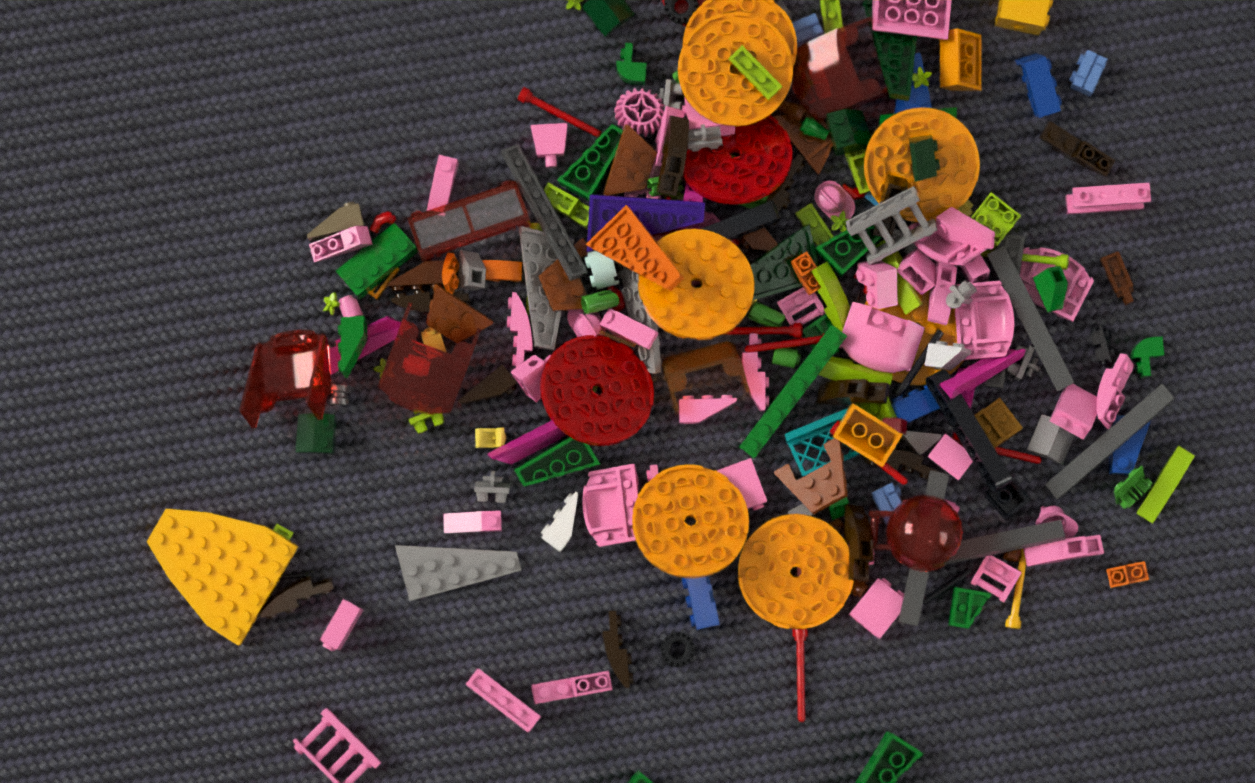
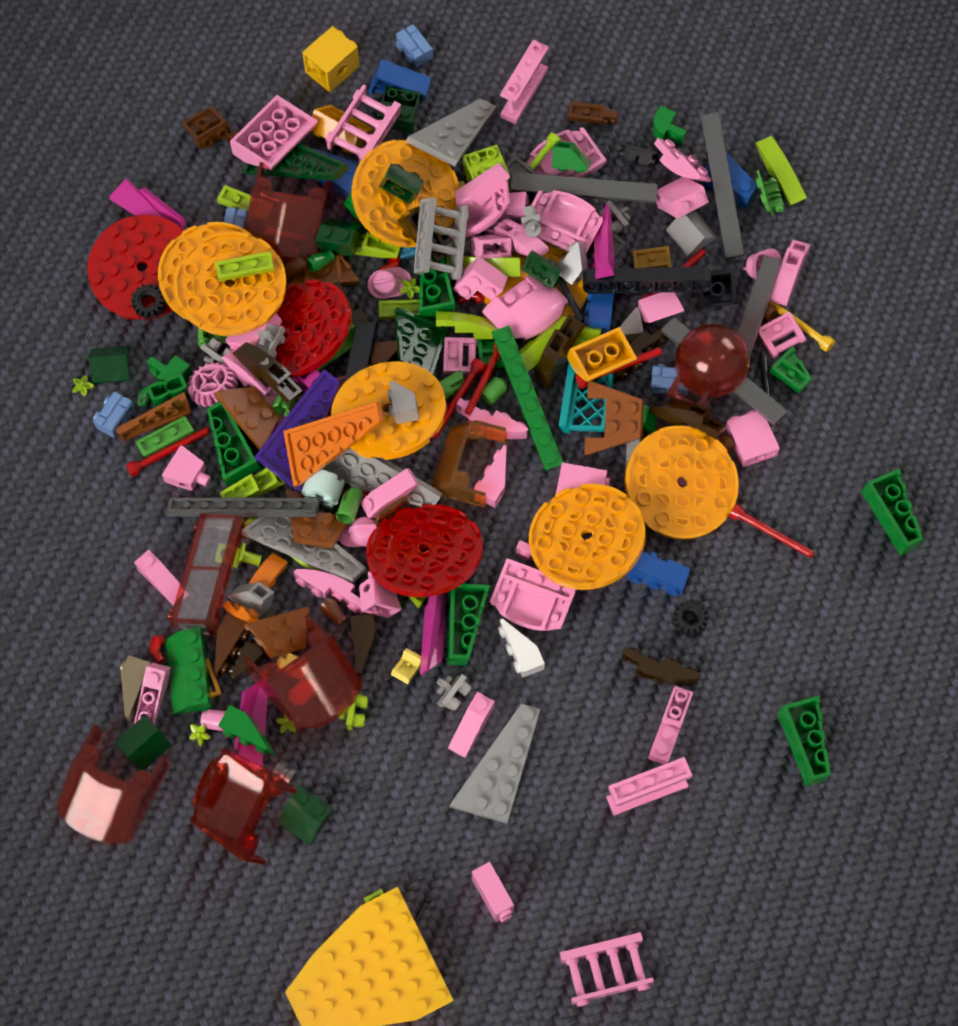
camera: 55 degrees left, 15 degrees down
(223, 263) = (102, 804): none -> clear red windscreen
(288, 597) = (437, 928): dark brown slope -> none
(294, 263) = (142, 743): none -> dark green slope
(501, 345) = (333, 611): none -> reddish brown cone
(504, 243) = (246, 556): none -> lime bracket
(562, 45) = (113, 414): none -> medium blue brick
(570, 102) = (165, 436): none -> bright green tile
(578, 83) = (156, 417): none -> dark orange wing
(599, 59) = (143, 397): none -> green arm
(614, 81) = (164, 391): none -> green brick
(701, 297) = (404, 403): none -> light grey slope
(803, 266) = (429, 331): orange slope -> none
(897, 424) = (607, 326): dark red slope -> none
(920, 331) = (542, 269): none -> dark green bracket
(921, 77) = (334, 153): lime plant -> none
(975, 100) = (382, 126): none -> bright pink fence
(1007, 169) = (453, 134): none -> light grey wing
(1011, 101) = (409, 107): none -> dark green slope
(1077, 150) = (472, 86): dark brown slope -> none
(1127, 574) = (837, 238): orange slope -> none

